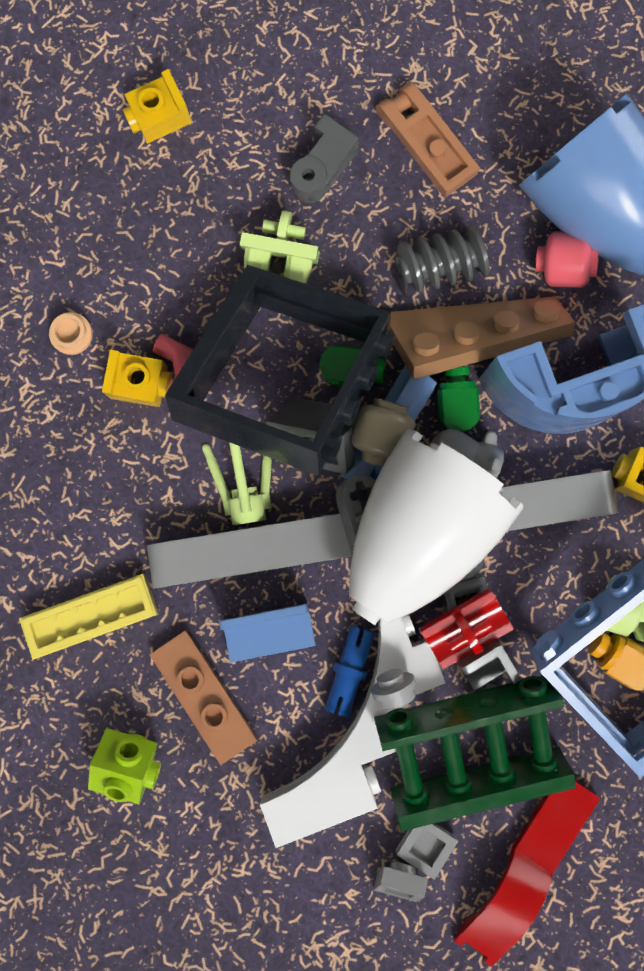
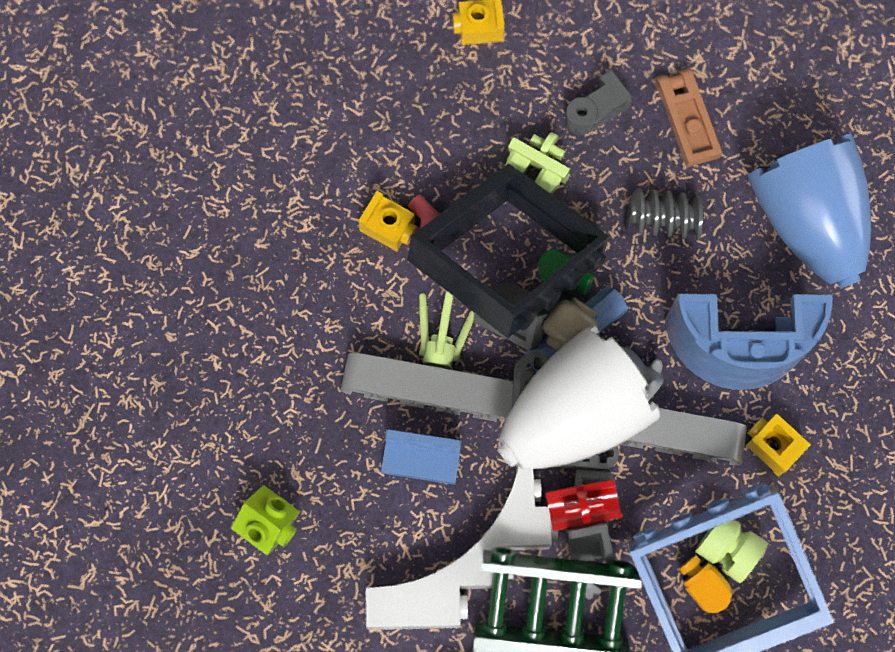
camera: 15 degrees right, 10 degrees down
(70, 333) = (347, 169): light nougat plate -> none
(88, 616) = (280, 394): light yellow plate -> none
(203, 697) = (349, 492): nougat plate -> none
(349, 671) = (476, 513): blue pin -> none
(394, 688) = (508, 529): light grey plate -> none
(458, 400) = (641, 327): green arm -> none
(465, 334) = (661, 277): medium nougat wing -> none
(566, 261) = (767, 249): coral head -> none

